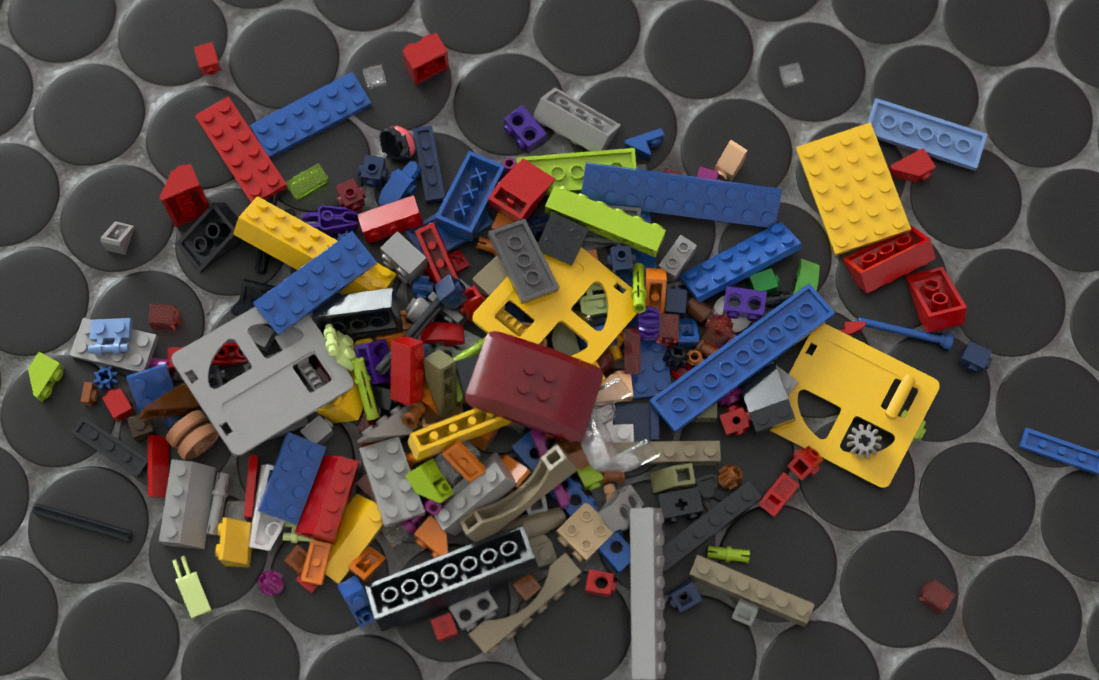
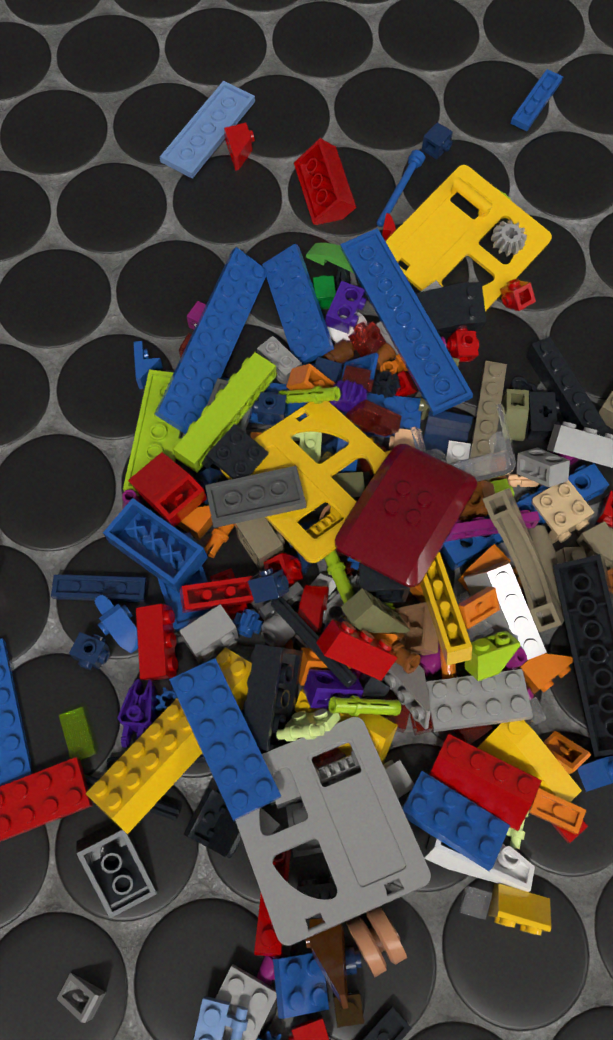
camera: 75 degrees left, 5 degrees down
(158, 466) = (403, 995): red tile -> none
(163, 316) = (206, 952): clear red brick -> none
(183, 196) = (57, 887): red slope -> none
(187, 504) = (460, 964): light grey slope -> none
(191, 590) = (566, 979): yellowish green arm -> none
(218, 501) = (464, 924): light grey pin -> none
(252, 479) = (459, 877): red tile -> none
(270, 583) = (572, 873): magenta gear -> none
(296, 559) = (547, 835): dark orange plate -> none
(350, 195) = (113, 683): dark red brick -> none
(397, 143) = (64, 616): black hair -> none
(528, 127) = (88, 472): dark purple brick -> none
(575, 121) = (98, 425): light grey slope -> none
(728, 554) = (597, 384): lime pin -> none
(730, 161) = (188, 286): light nougat slope -> none
(730, 476) = (520, 364): dark orange gear -> none
(778, 494) = (539, 327): red slope -> none
(791, 74) = (111, 221): clear plate -> none
(853, 189) = (246, 196): yellow plate -> none
(936, 300) = (375, 156): red slope -> none

